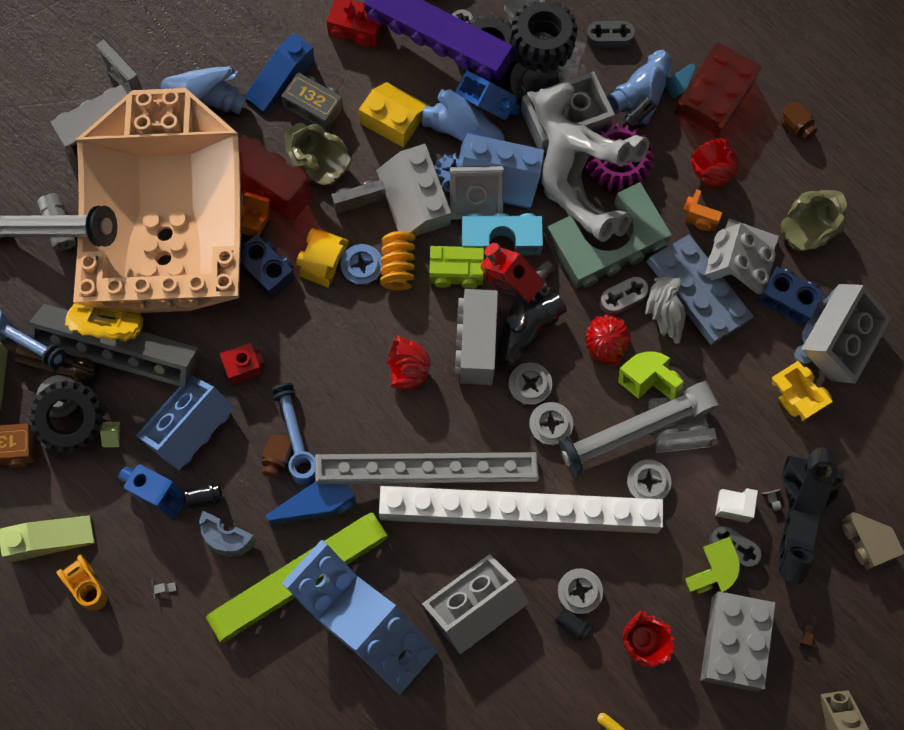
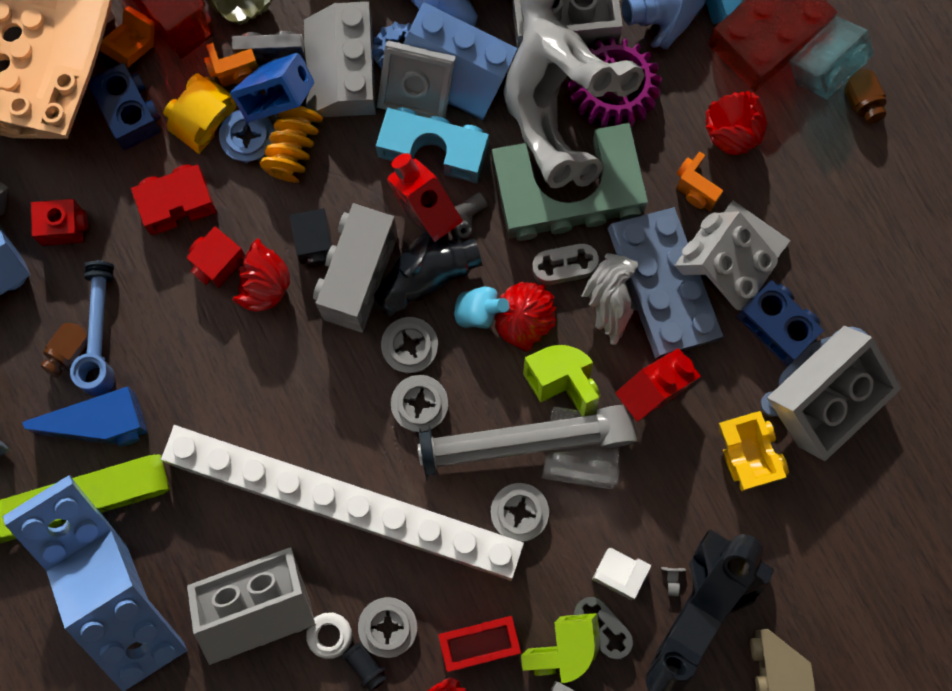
camera: 20 degrees right, 5 degrees up
(322, 323) = (172, 198): none -> red brick
(338, 218) = (231, 68): none -> orange bracket
(367, 358) = (214, 257): none -> red brick
(374, 223) = (285, 83): none -> blue torso
(425, 468) = (241, 417): light grey tile -> none
(435, 325) = (311, 236): none -> black brick
(456, 266) = (359, 169): lime brick -> none
(548, 601) = (344, 640): none -> white piece
(574, 342) = (479, 307): none -> medium azure piece
(639, 111) = (653, 33): black pin -> none
(652, 582) = (479, 643): none -> red brick
(721, 360) = (657, 384): none -> red brick
(767, 100) = (832, 57): none -> clear light blue brick
(814, 219) = (843, 231): olive hair -> none

